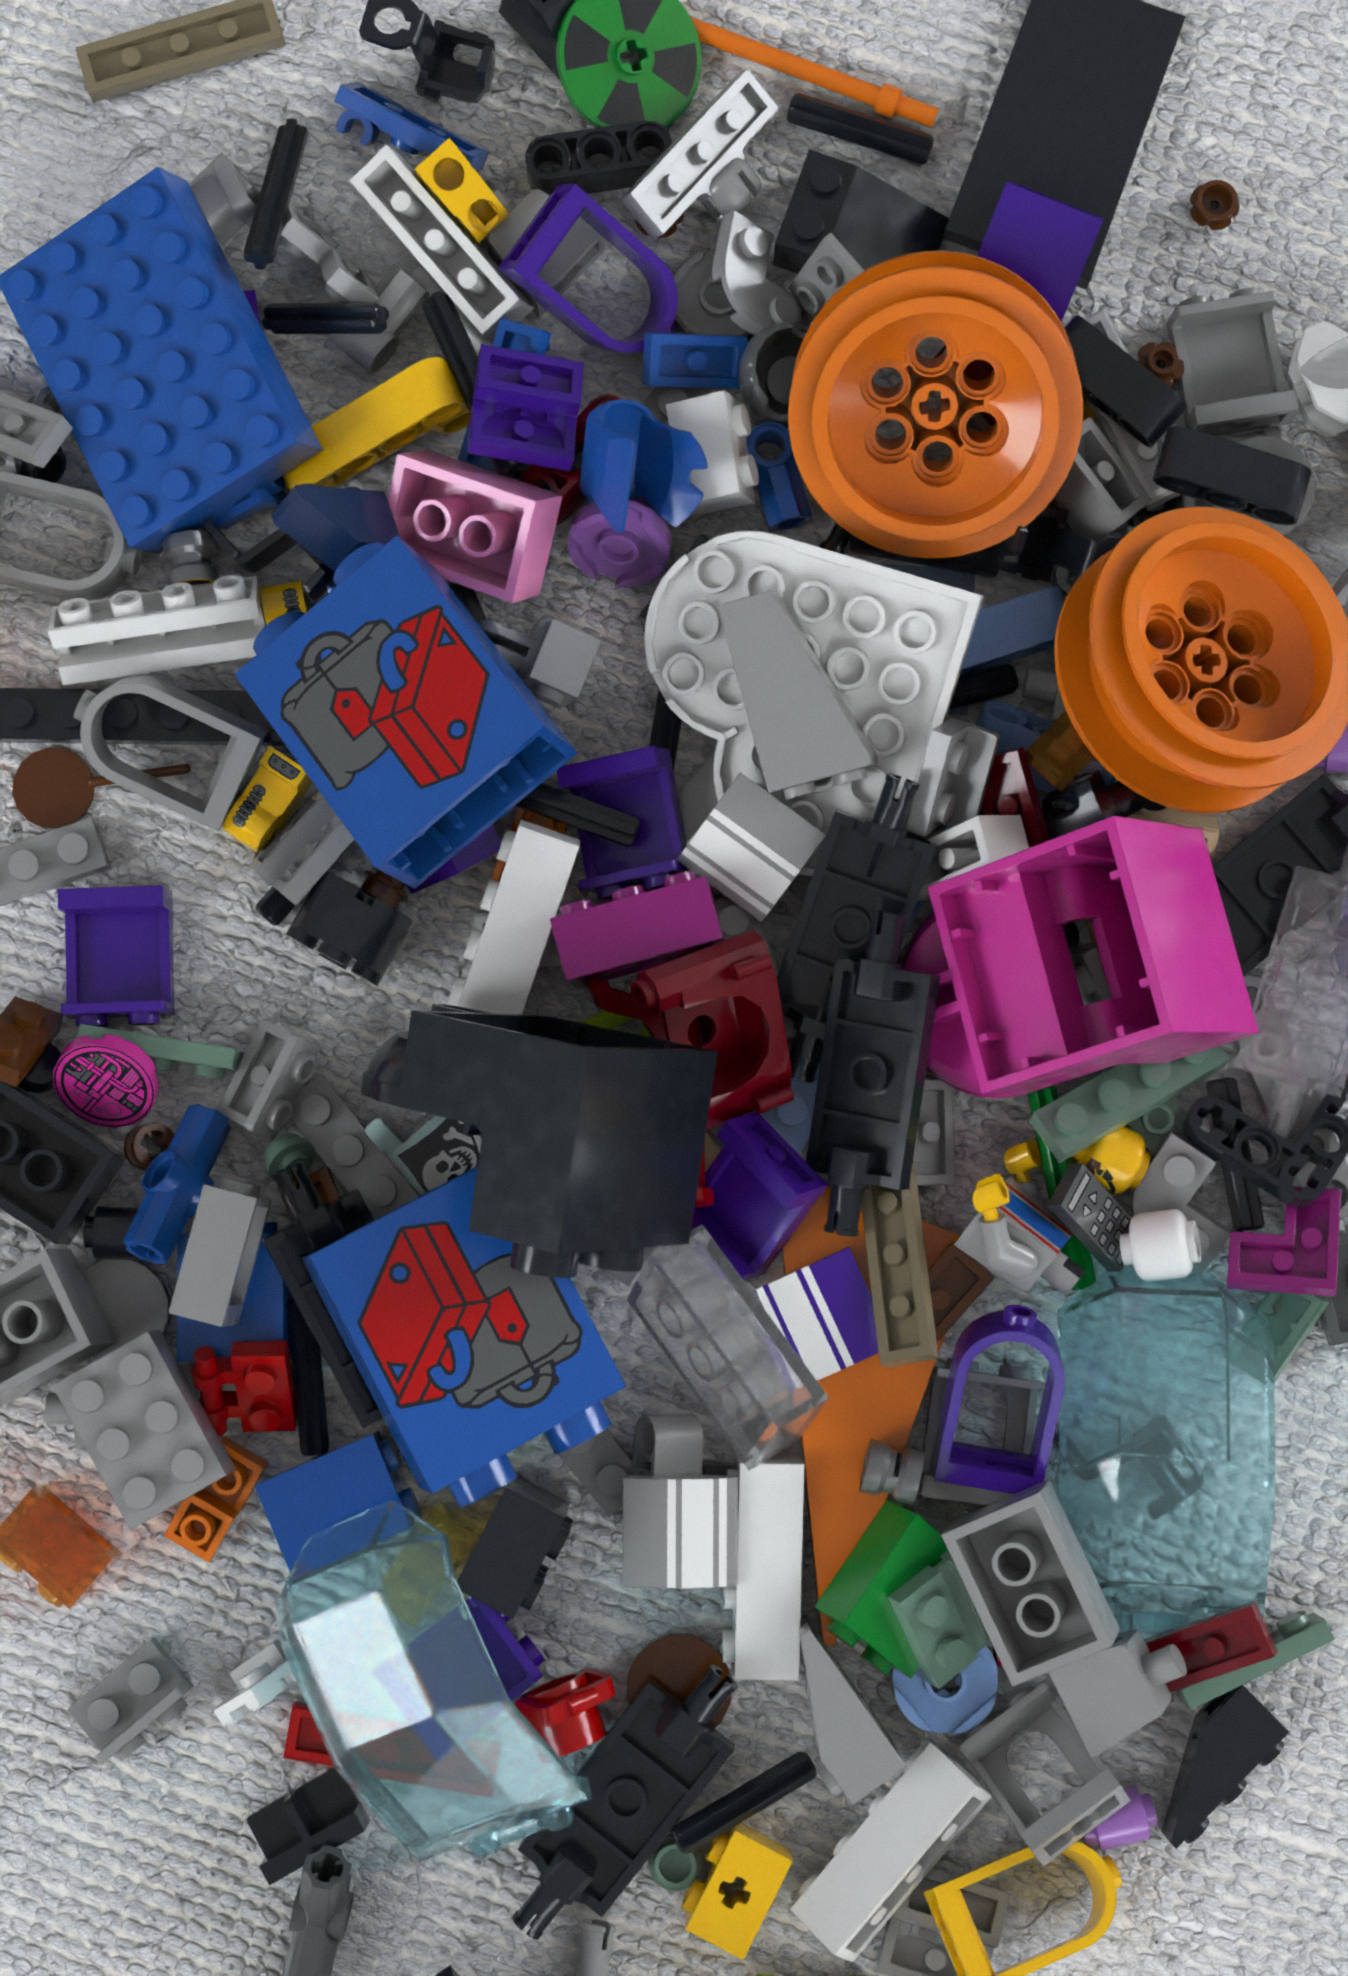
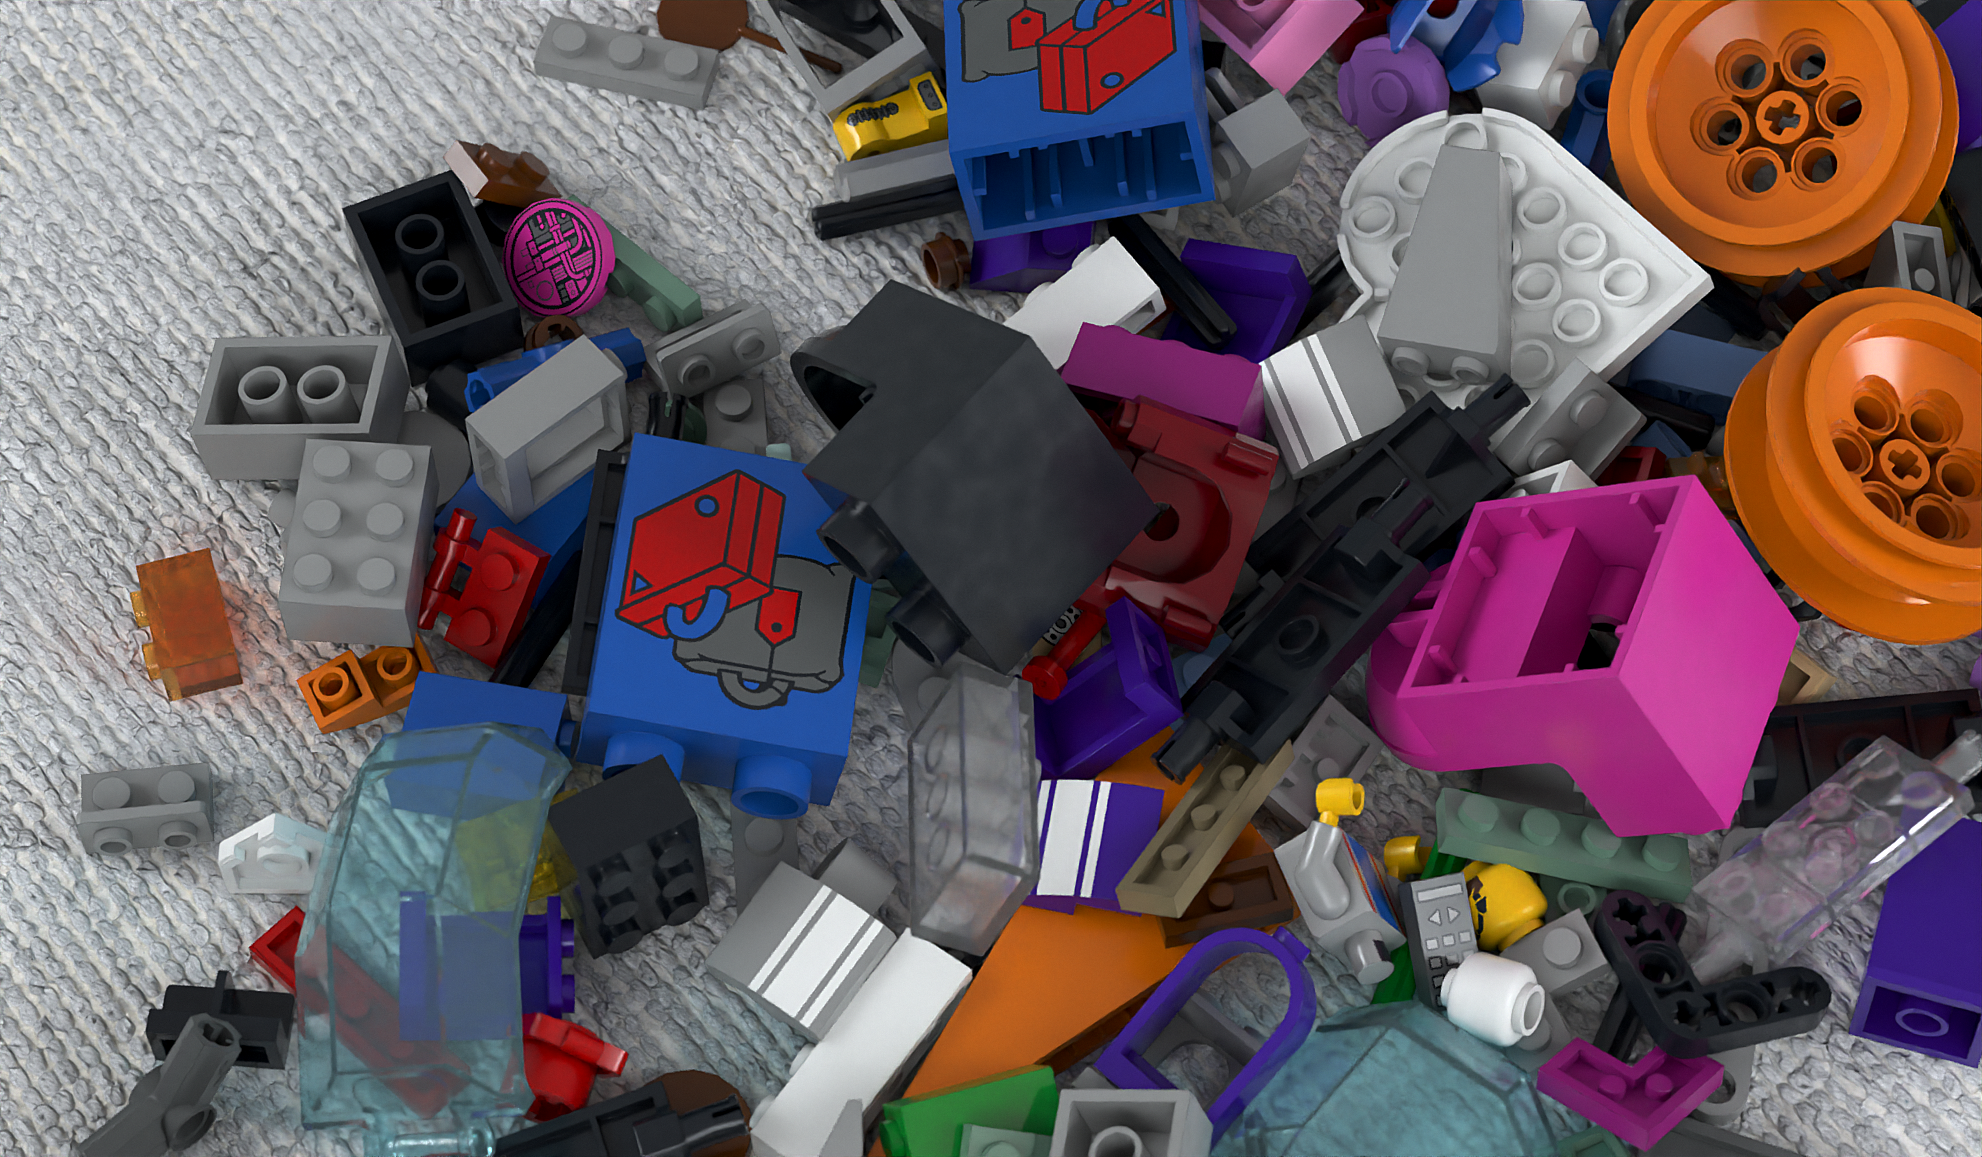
camera: 35 degrees right, 25 degrees down
(118, 954) = (659, 168): dark purple panel -> none
(350, 927) = (887, 243): black brick -> none
(891, 1471) = (1055, 1024): flat silver wheel -> none

